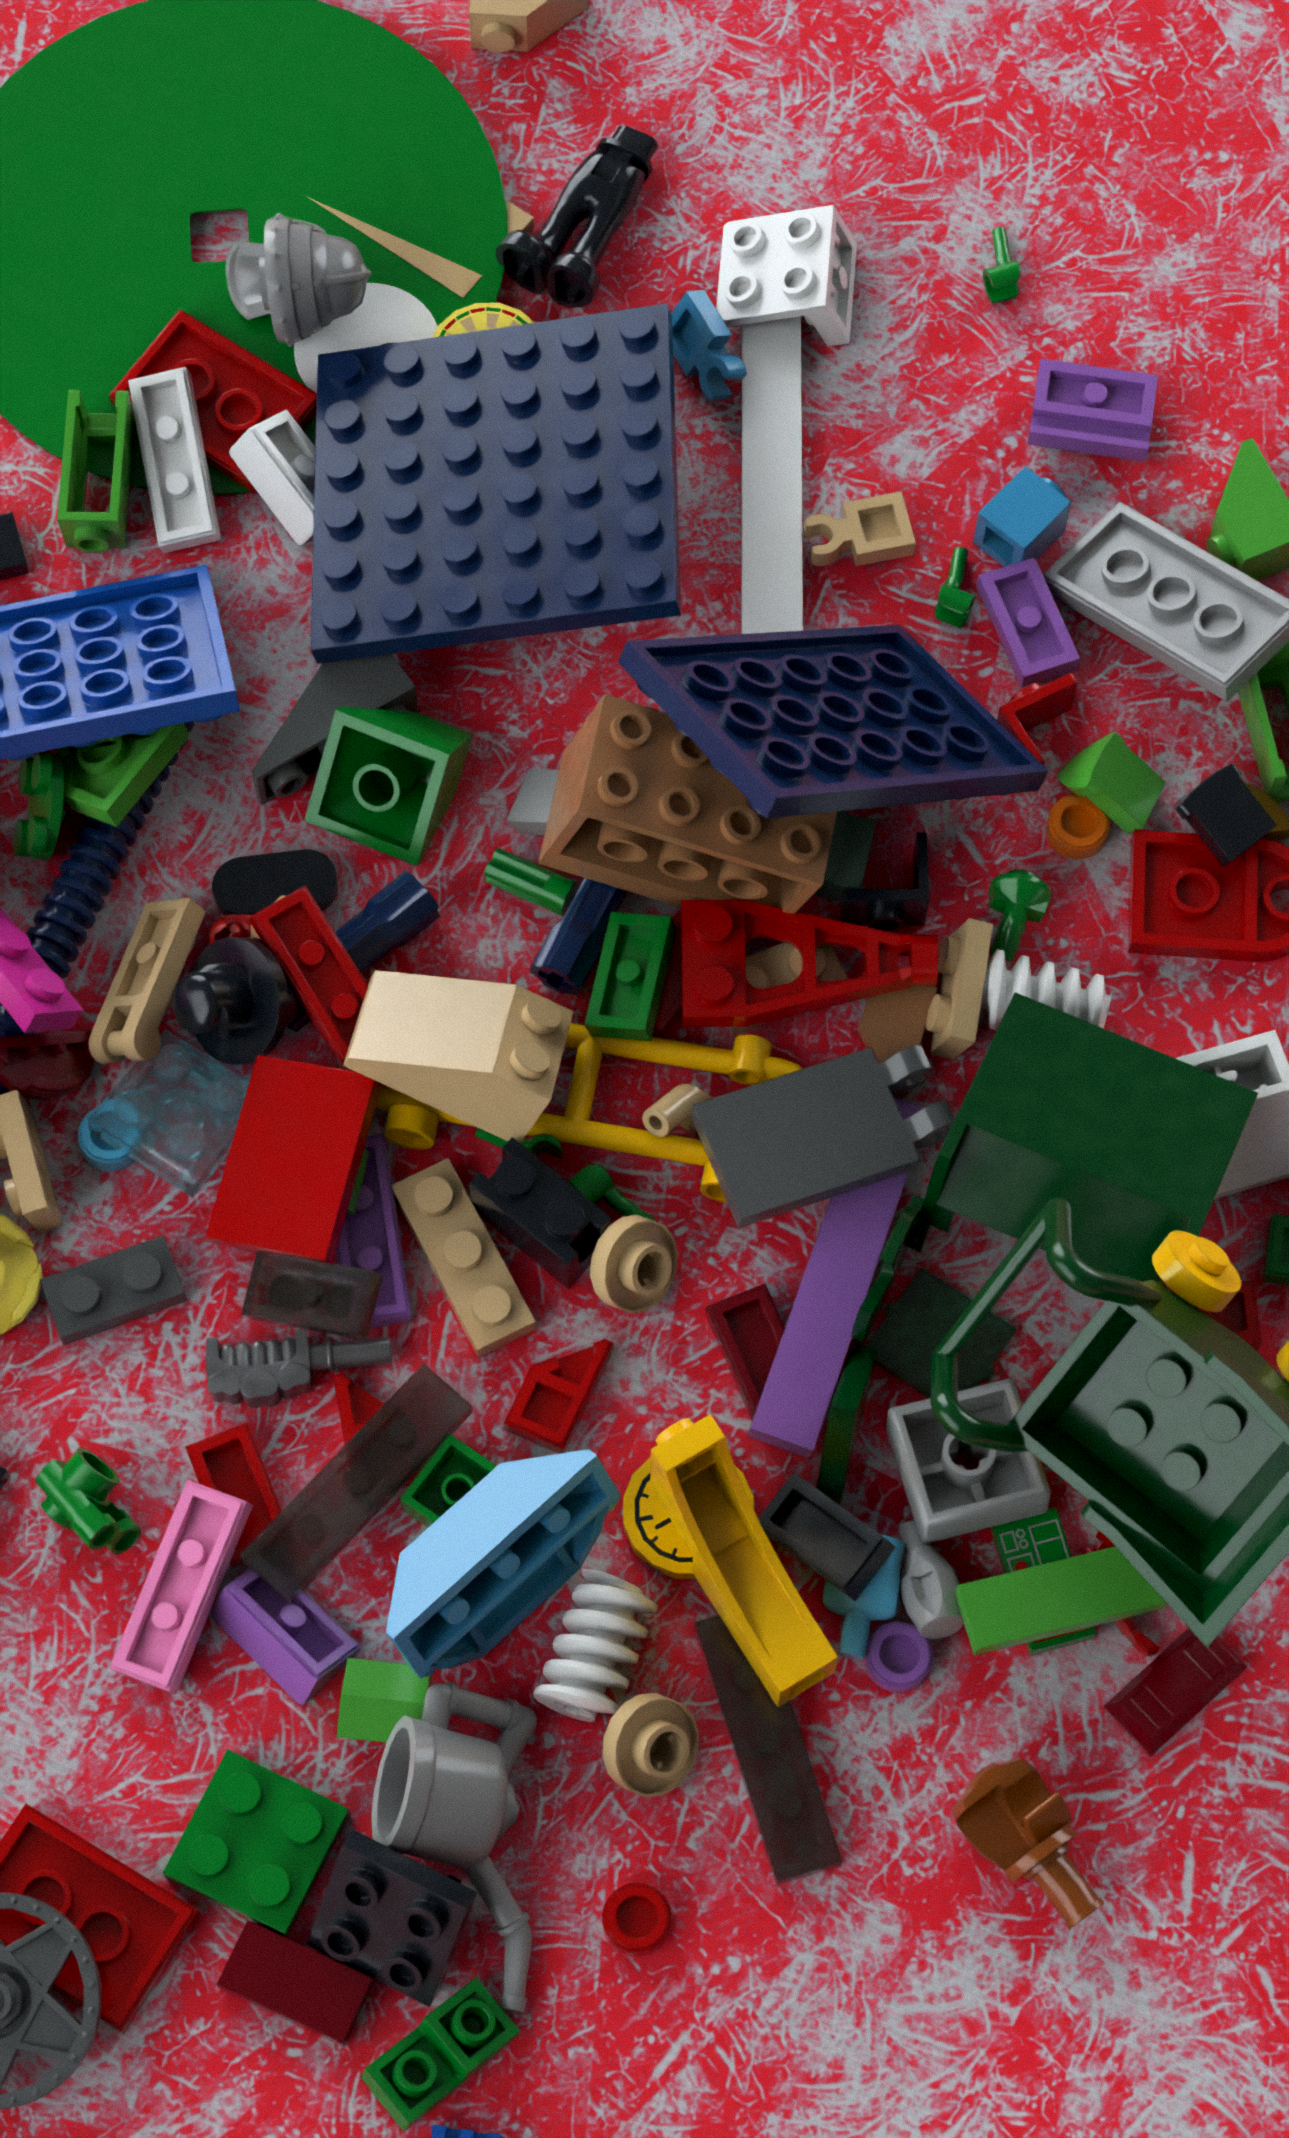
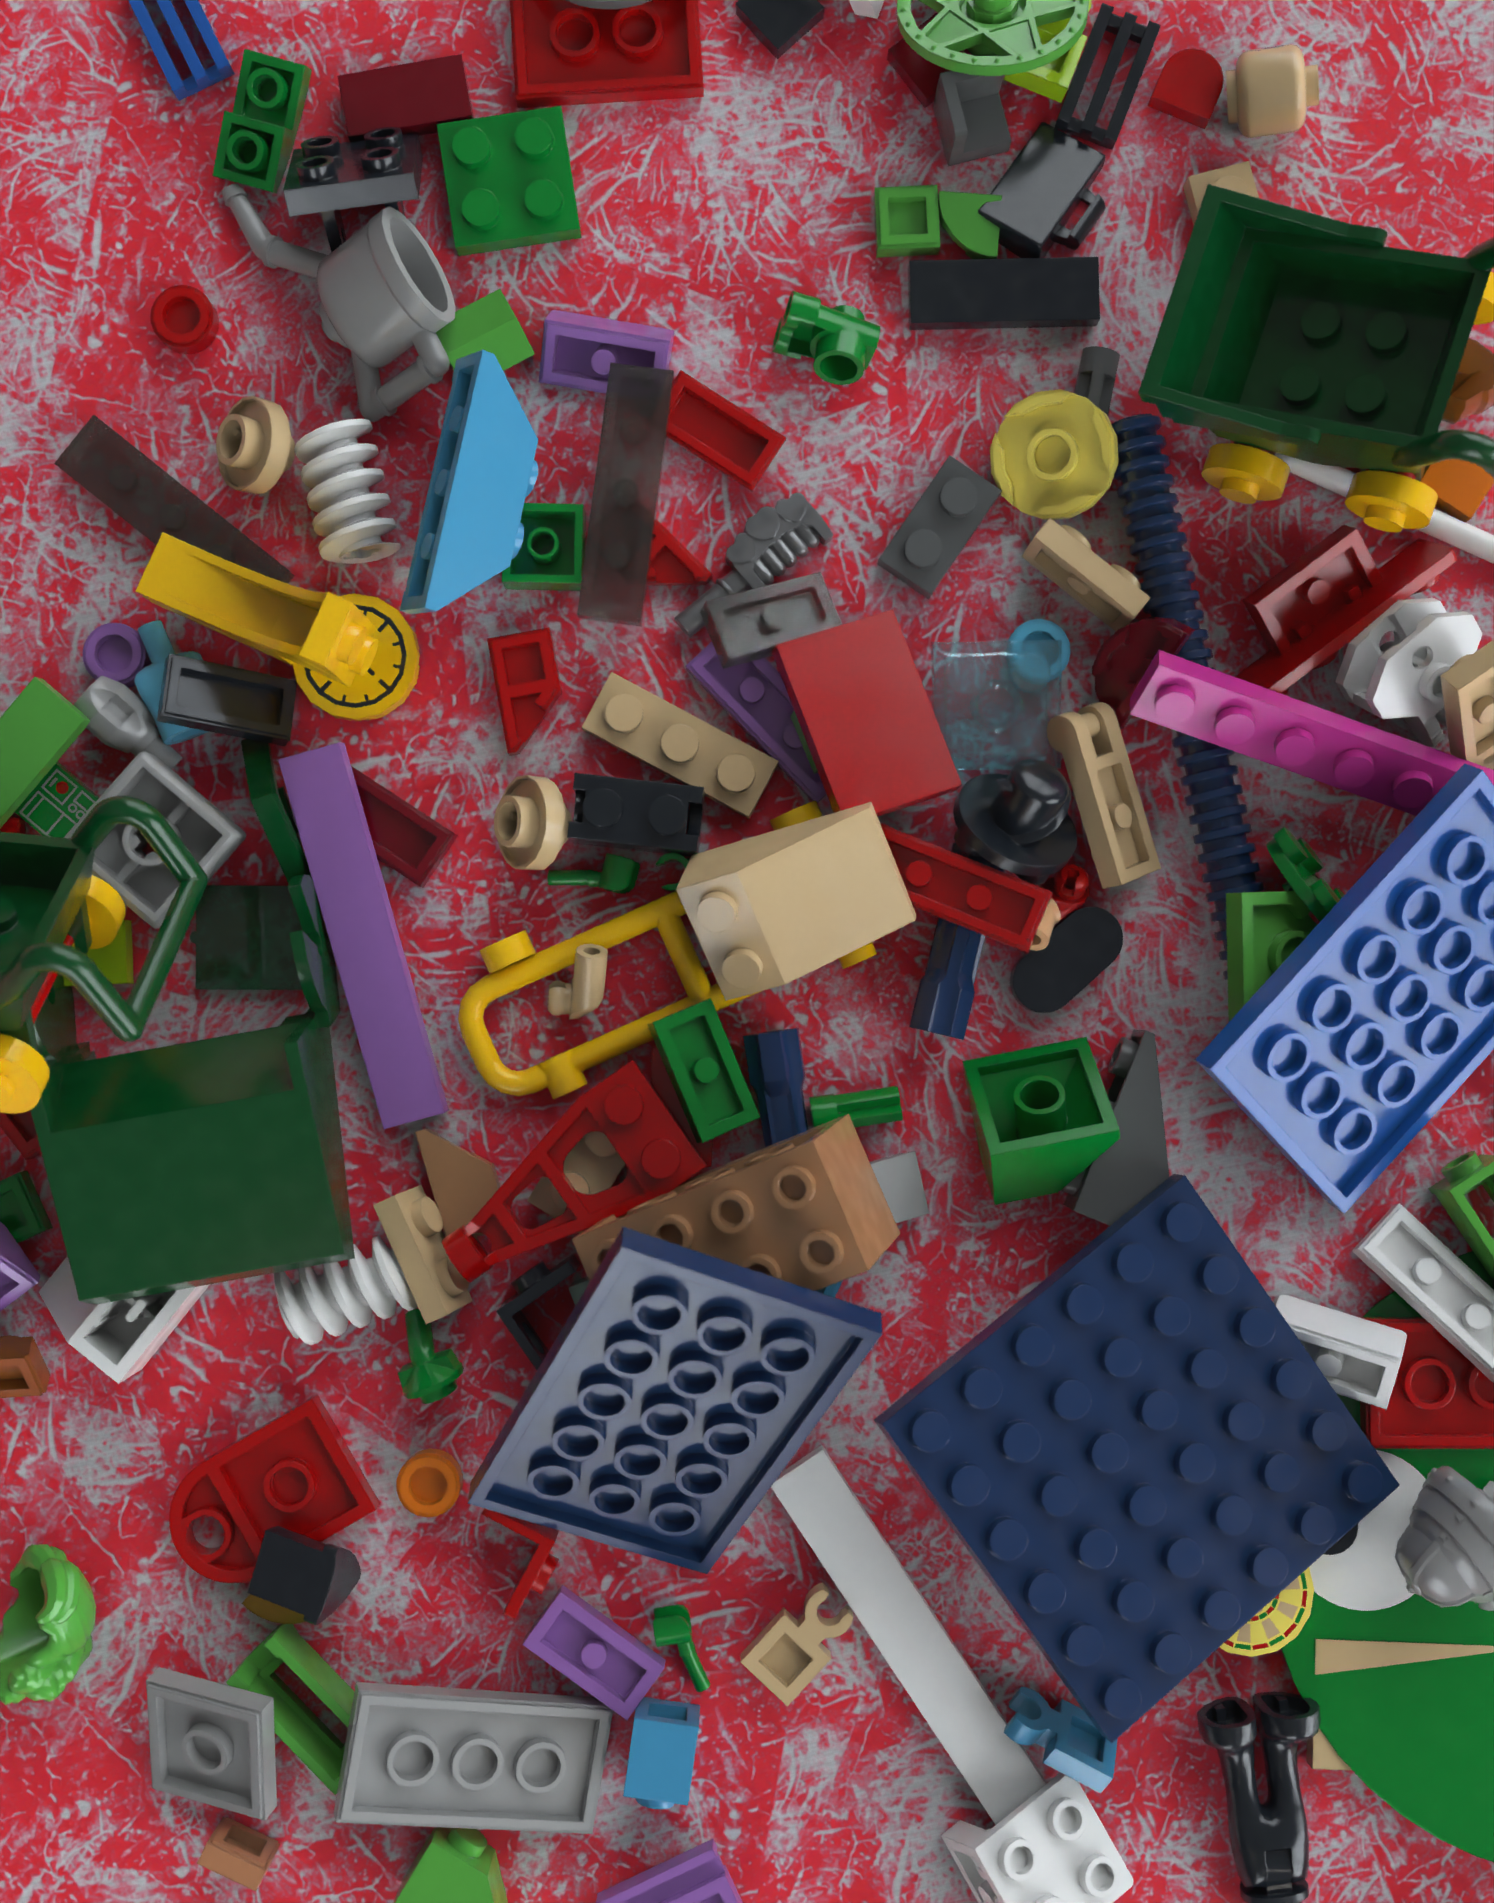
camera: 145 degrees right, 20 degrees up
(181, 1587) = (706, 325): bright pink tile -> none
(817, 1132) = (453, 1034): dark grey tile -> none
(1114, 781) = (421, 1542): bright green tile -> none

